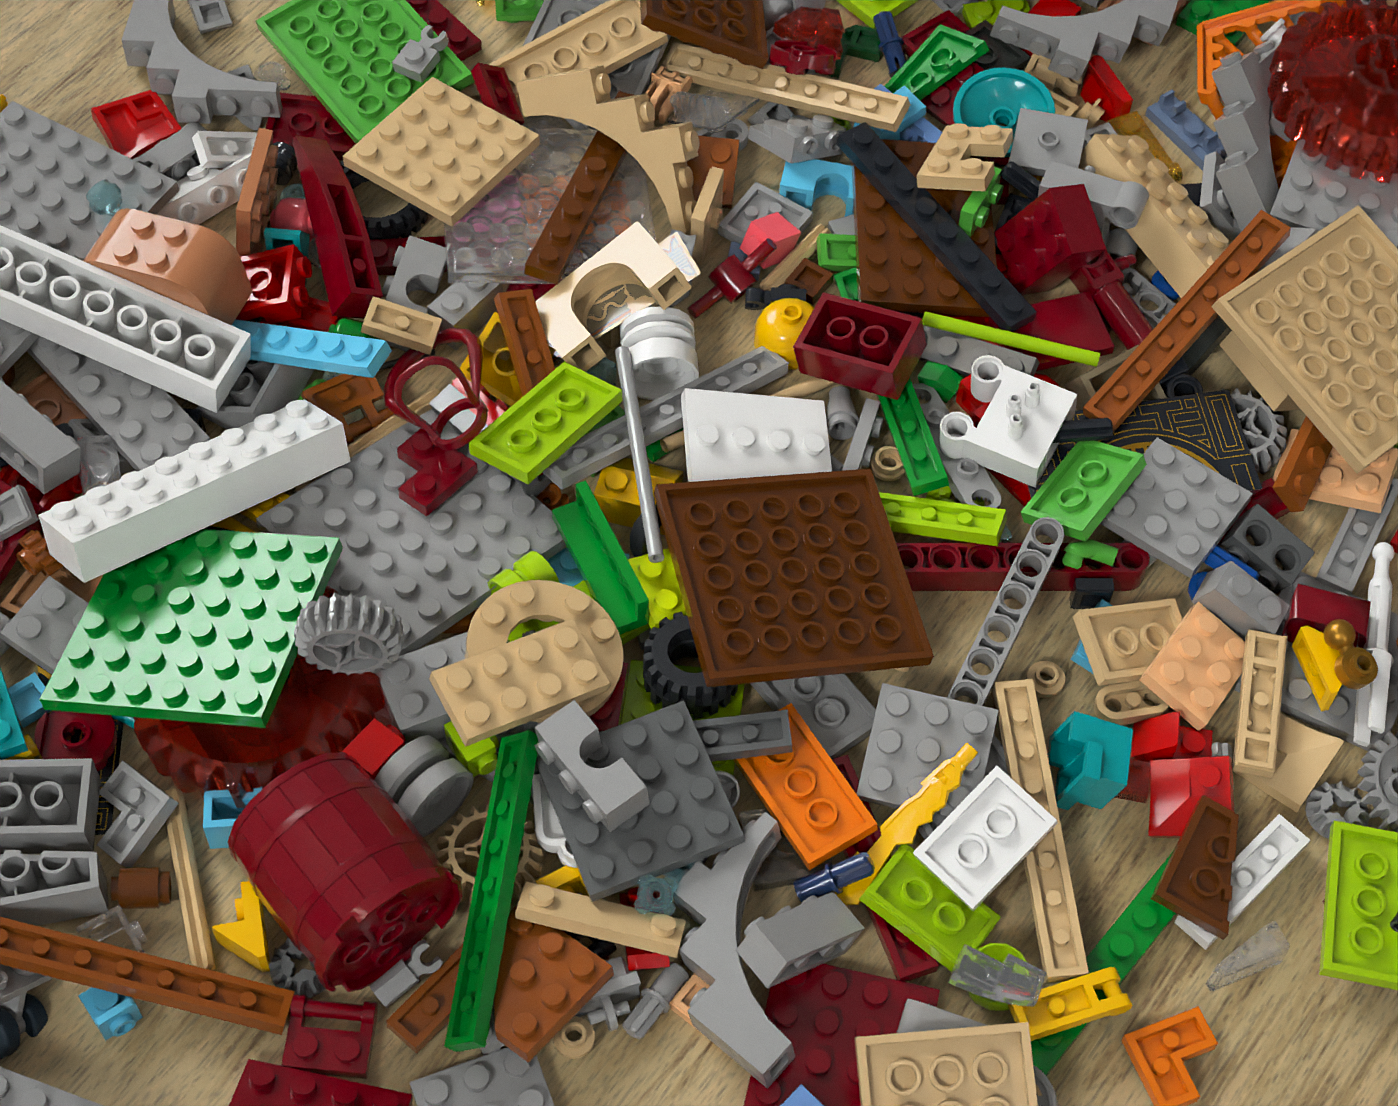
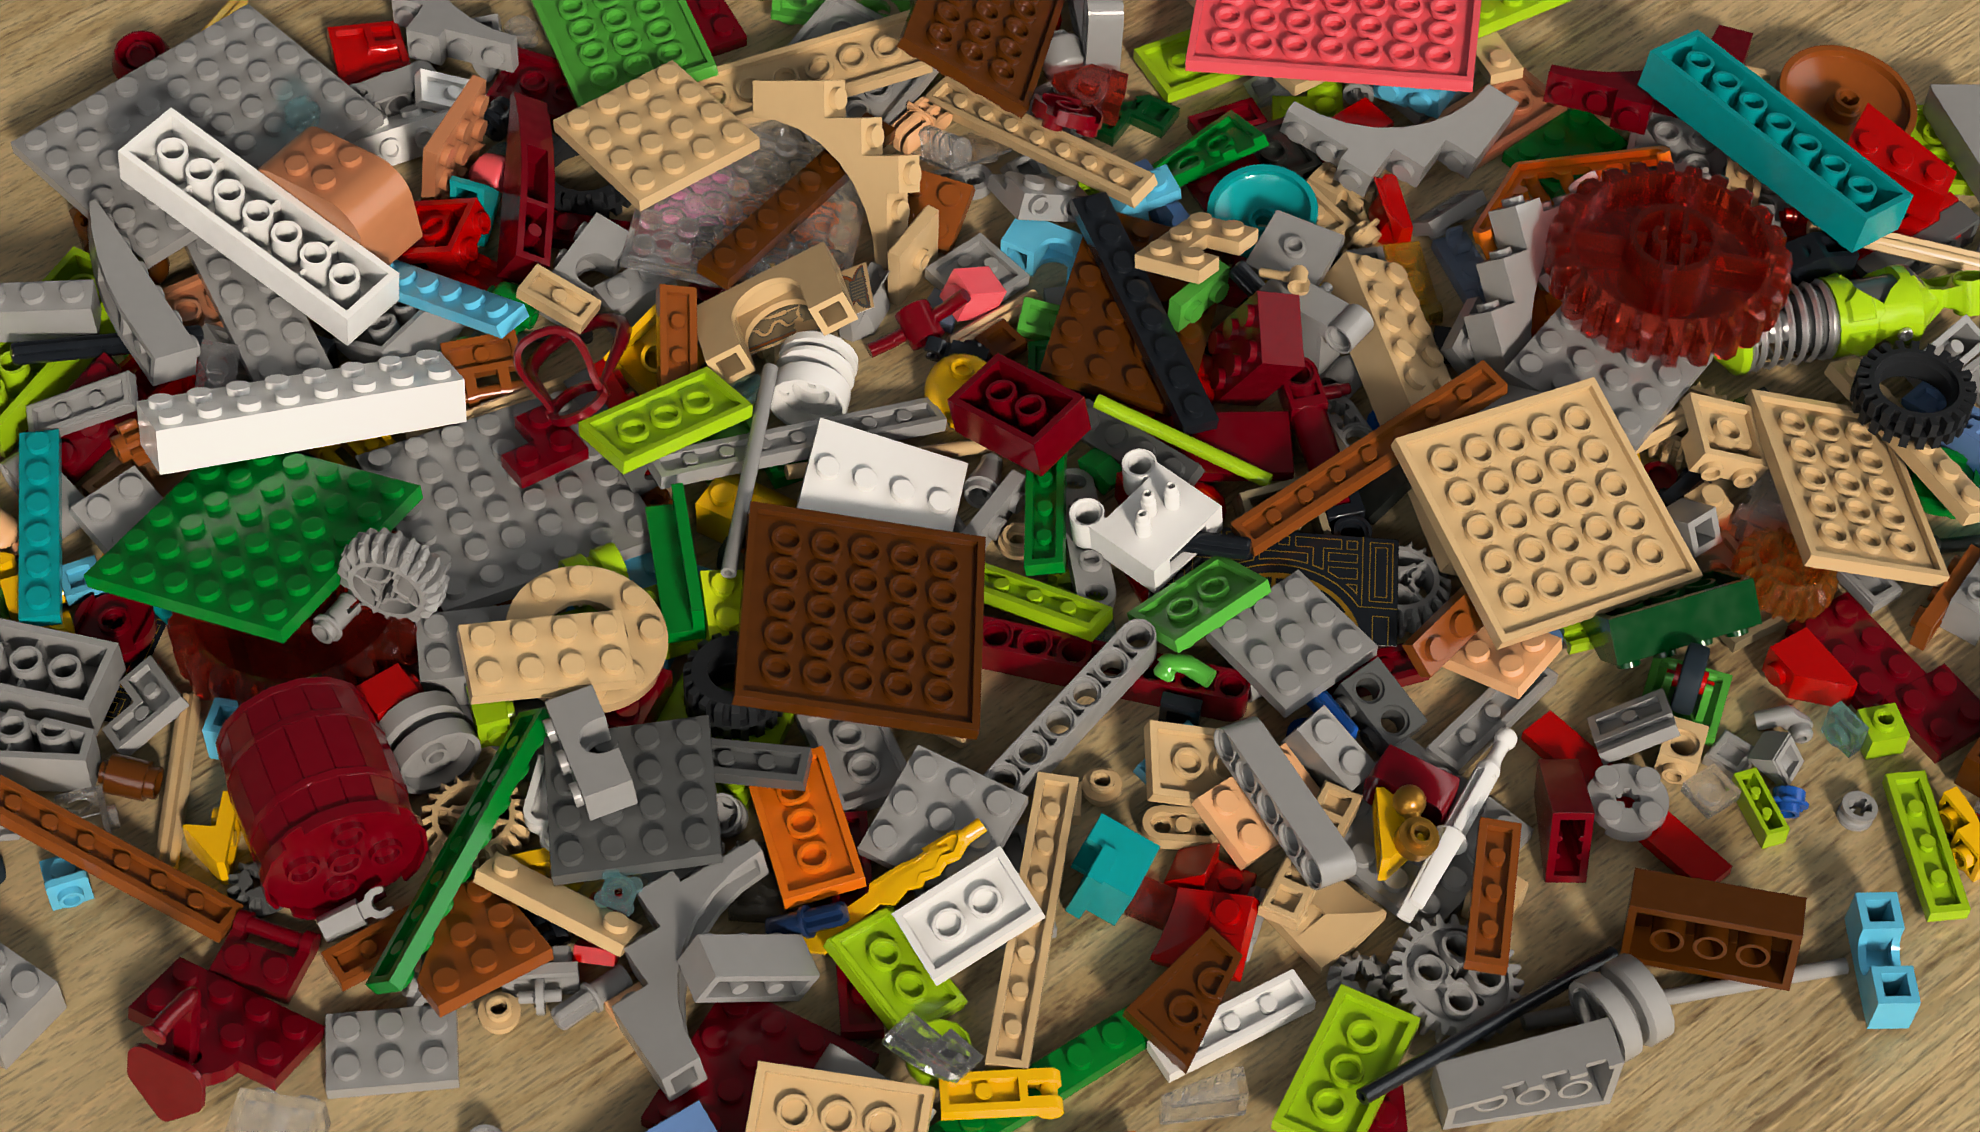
camera: 15 degrees right, 5 degrees down
(299, 696) = (329, 625): none -> light grey pin
(420, 57) = (668, 39): light grey plate -> none
(496, 91) = (736, 88): dark red plate -> none
(890, 41) = (1175, 116): dark blue axle -> none
(1071, 167) = (1296, 278): none -> tan hand
(1154, 78) = (1455, 209): none -> light grey plate
(1229, 661) = (1285, 803): none -> light grey beam

